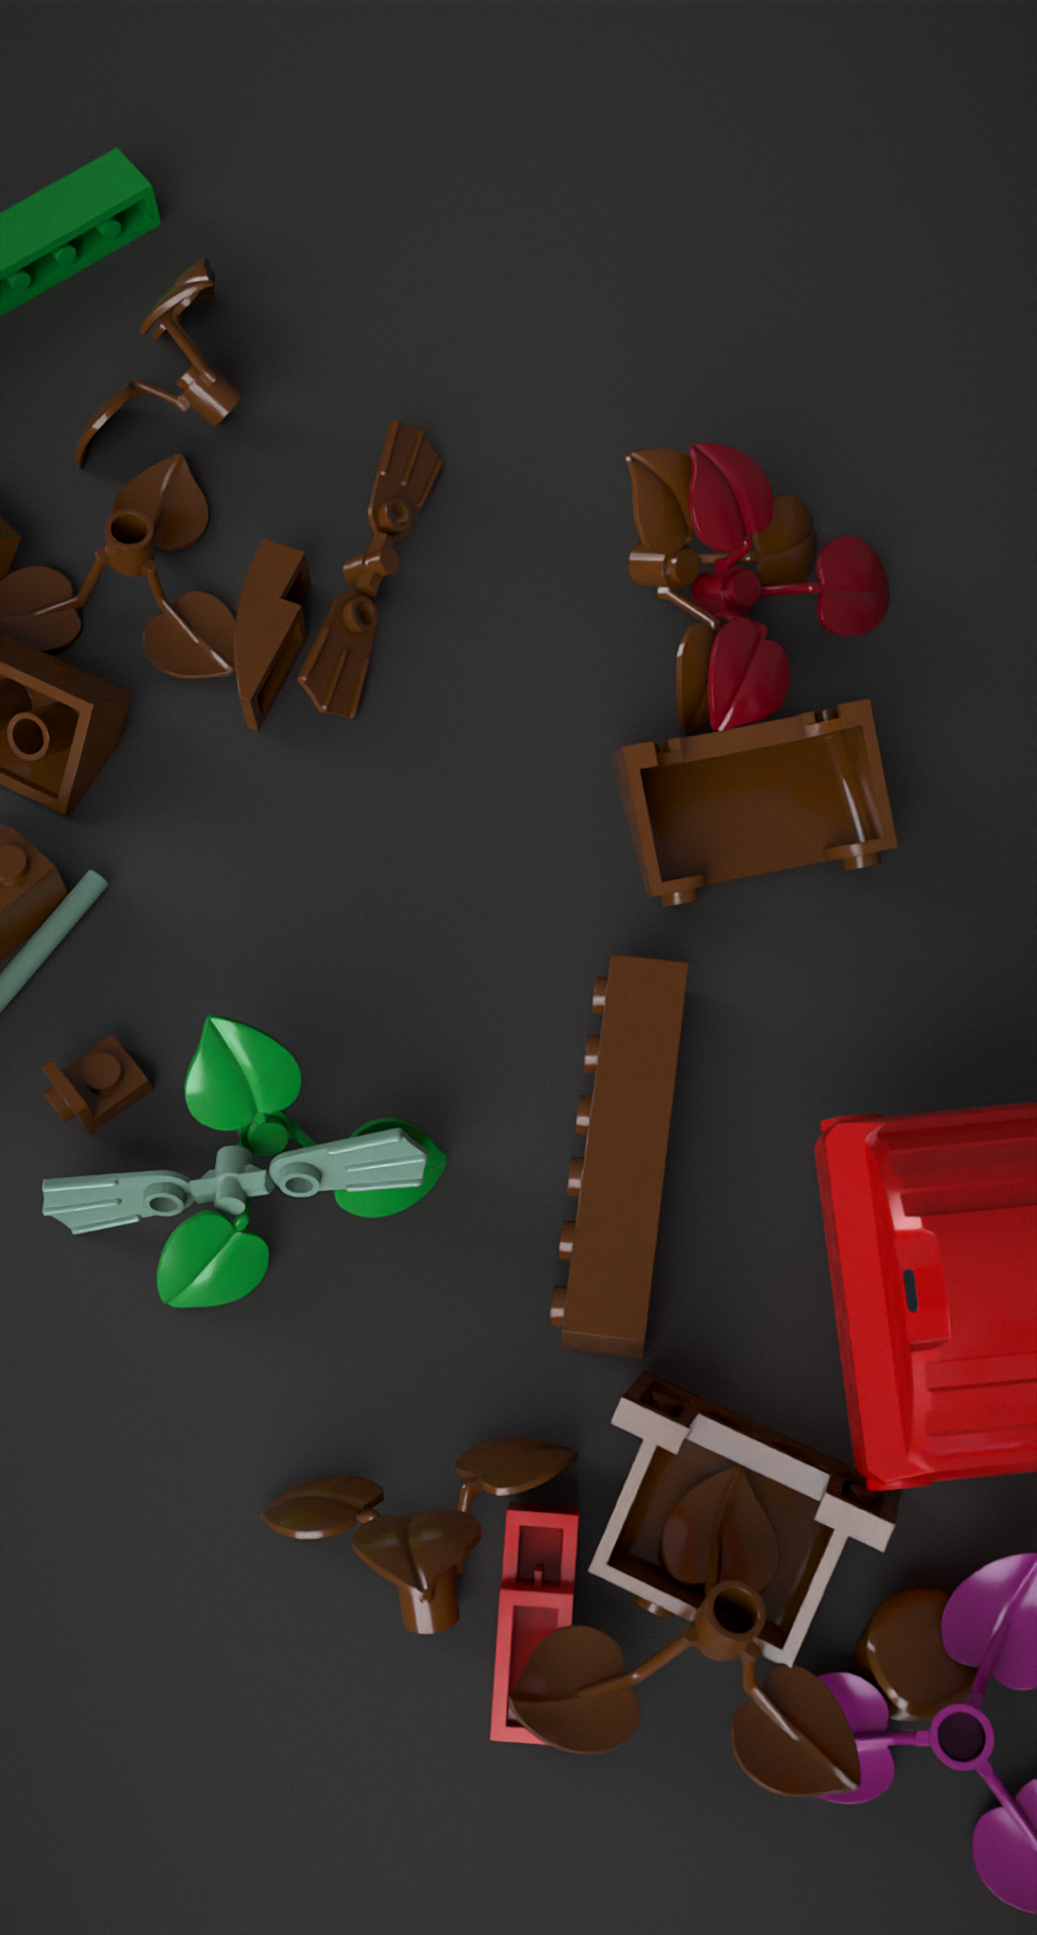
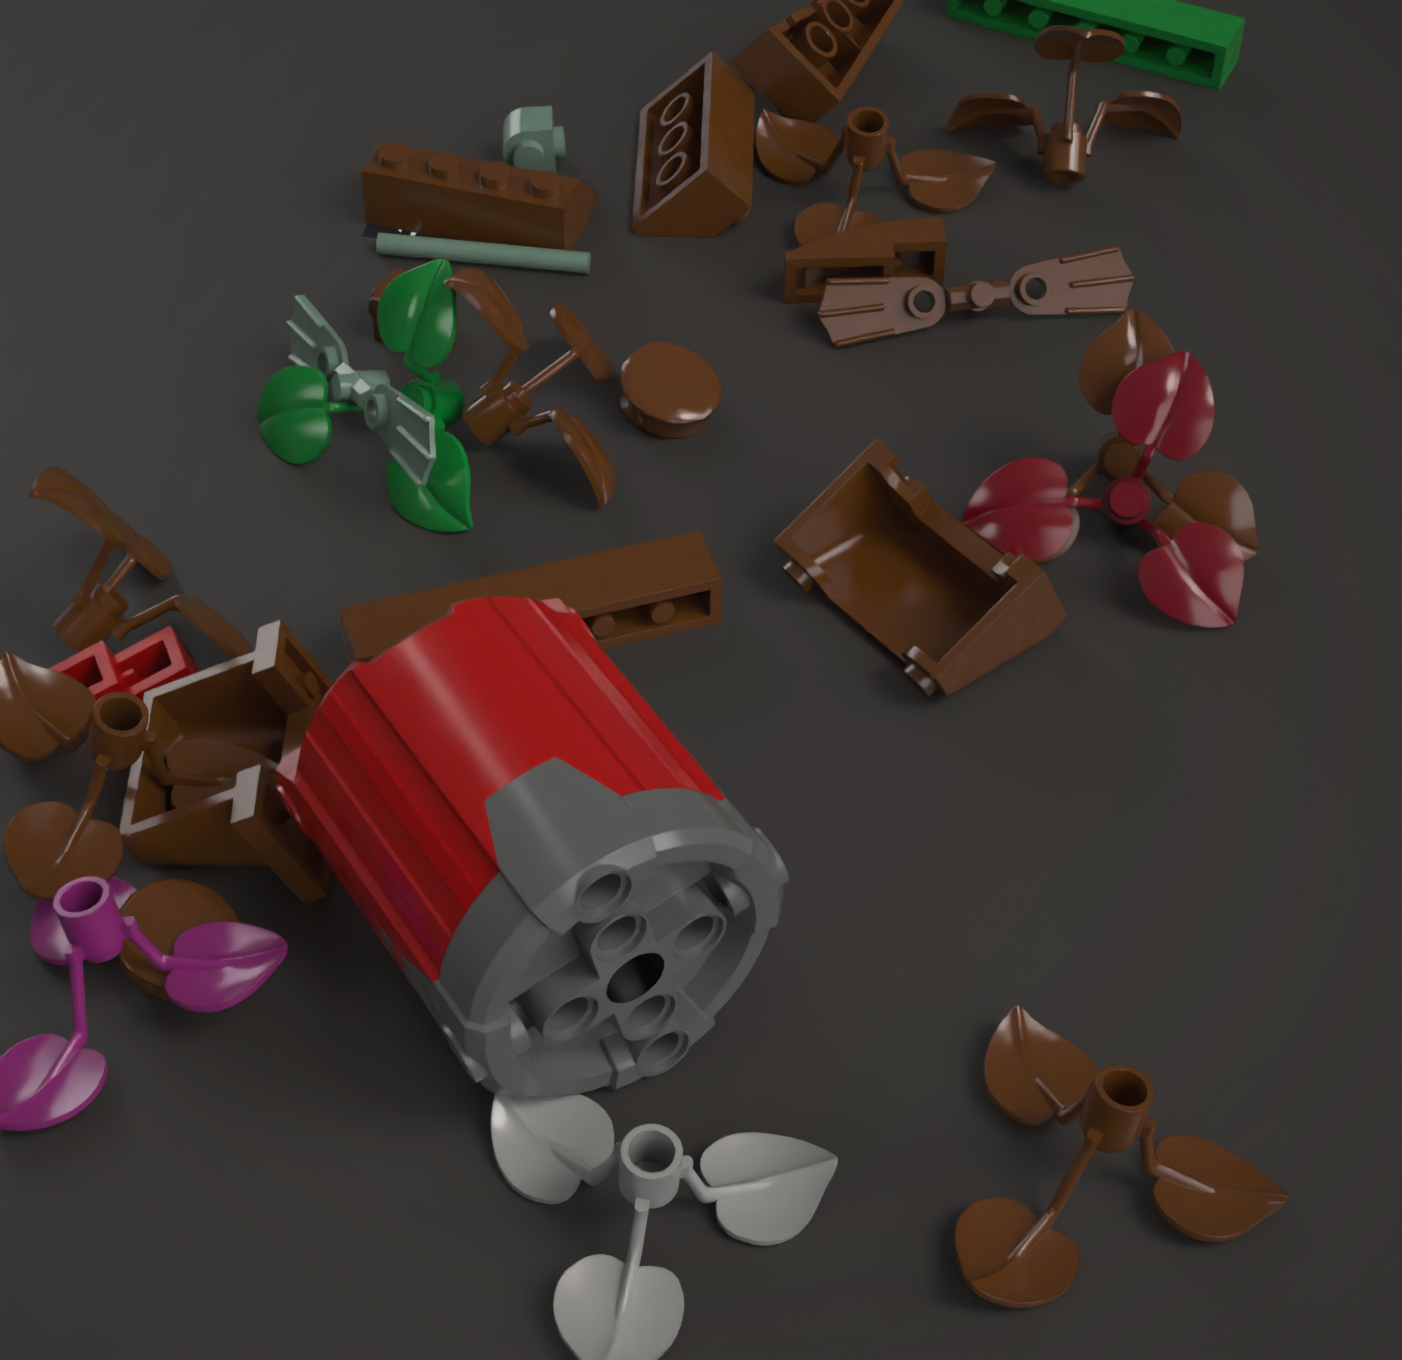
camera: 60 degrees right, 20 degrees down
(280, 1004) = (505, 406): none -> reddish brown plant
(358, 891) = (669, 390): none -> reddish brown piece

